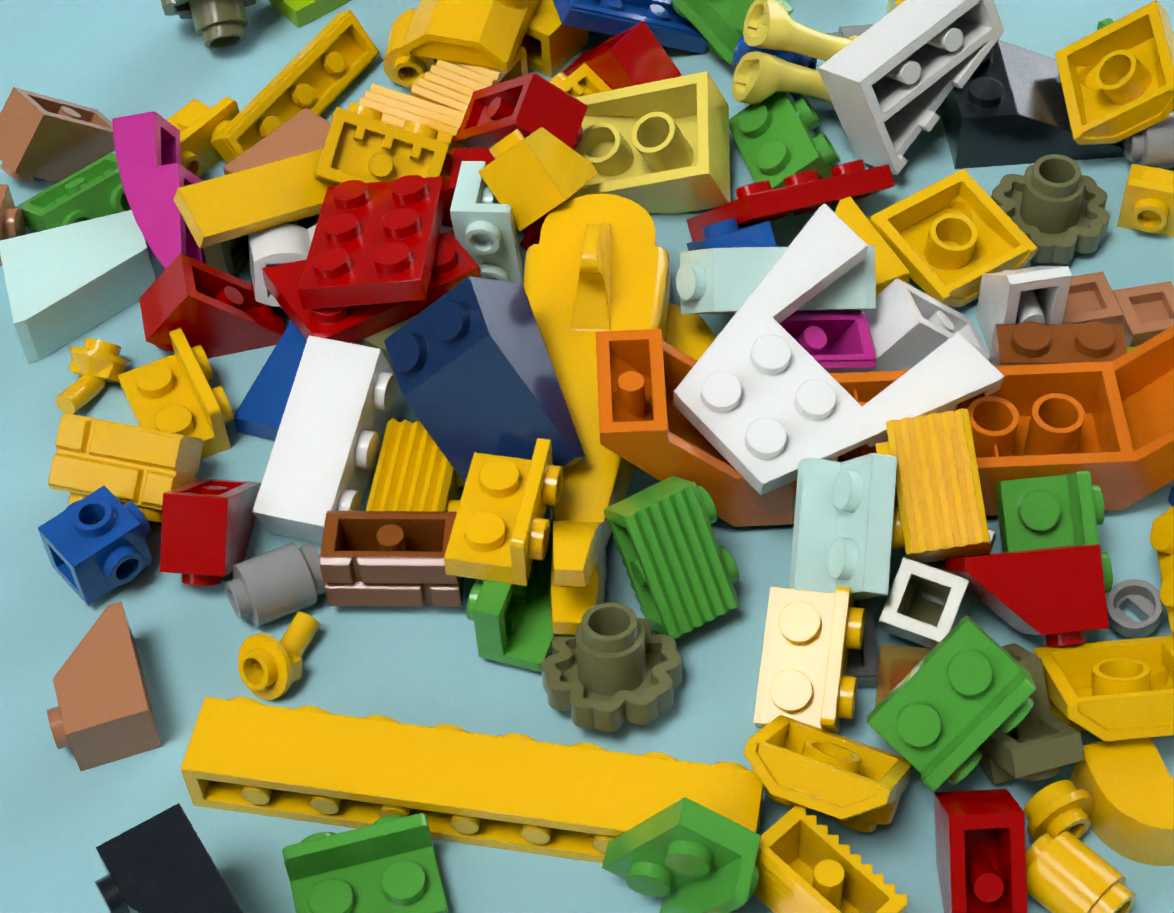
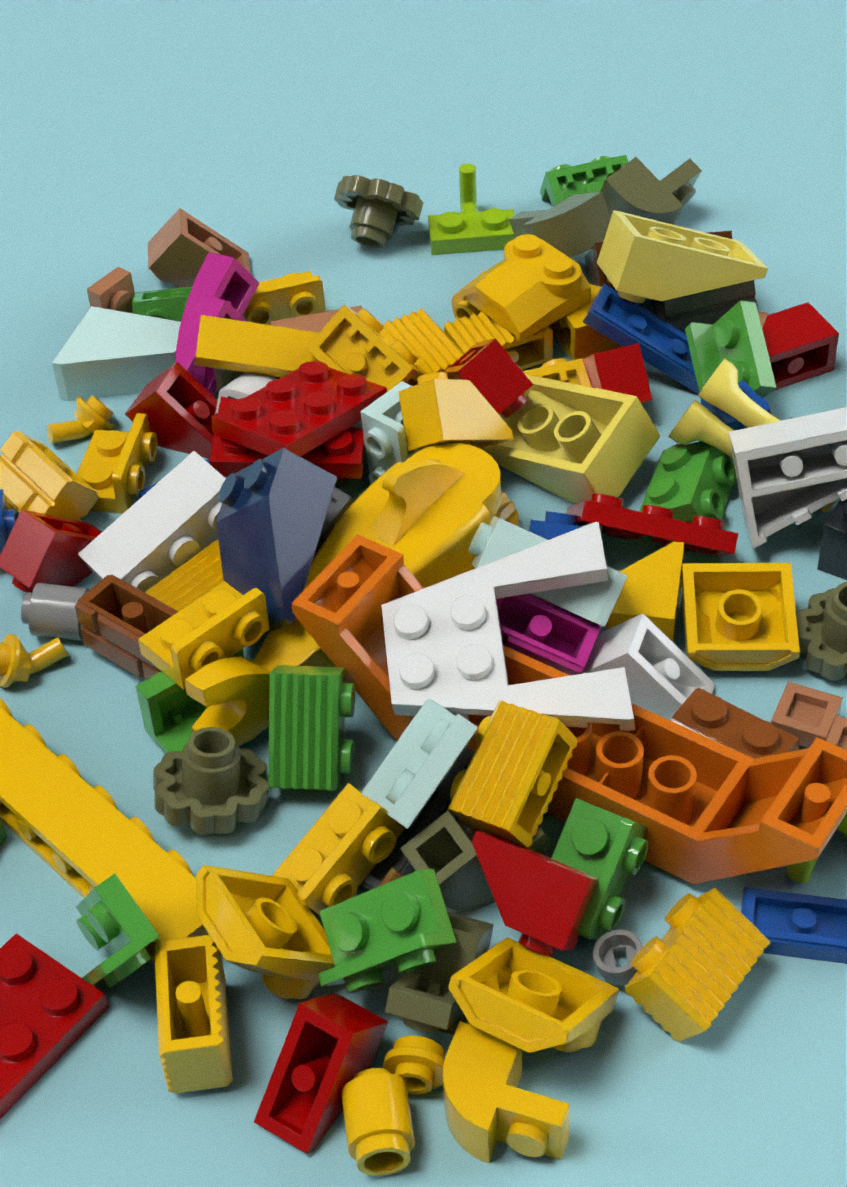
camera: 35 degrees right, 5 degrees down
(307, 81) = (389, 291): yellow tile -> none
(1022, 296) = (745, 681): white slope -> none

